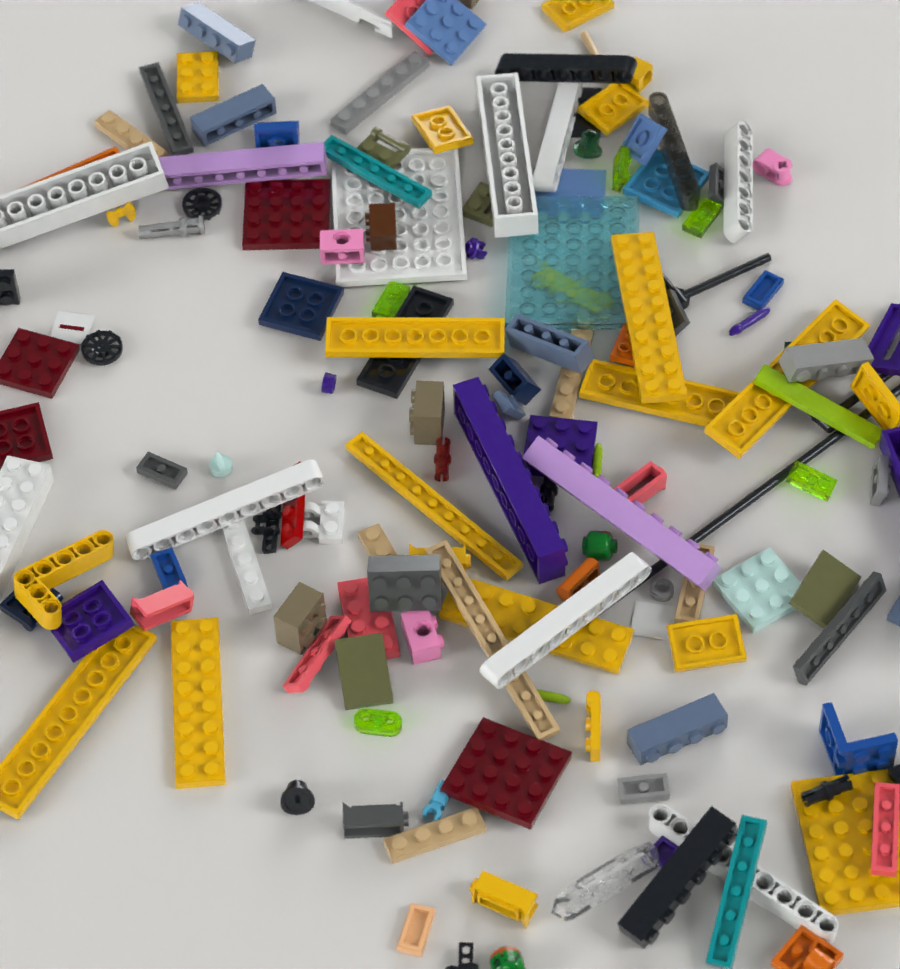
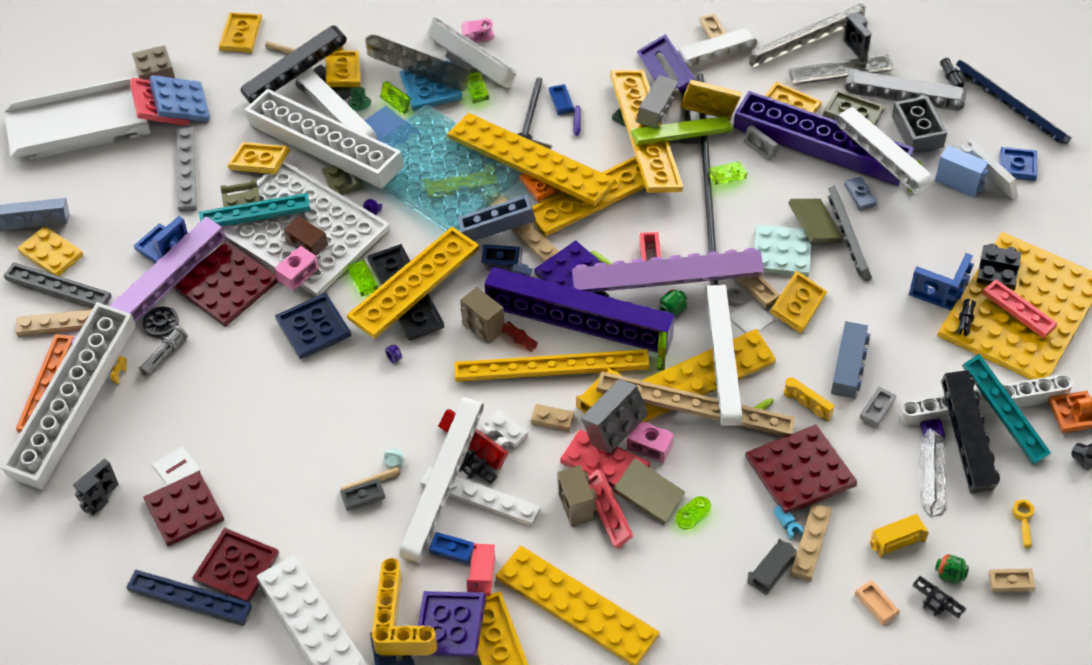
camera: 50 degrees left, 0 degrees up
(101, 347) = (216, 459): black wheel -> none
(196, 471) = (382, 476): none -> tan bar
(233, 115) = (109, 253): sand blue brick -> none
(297, 798) = (715, 597): black piece -> none
(526, 572) = (661, 351): none -> clear neon green tile
(578, 579) = (688, 331): orange brick -> none
(644, 139) = (391, 68): medium blue tile -> none

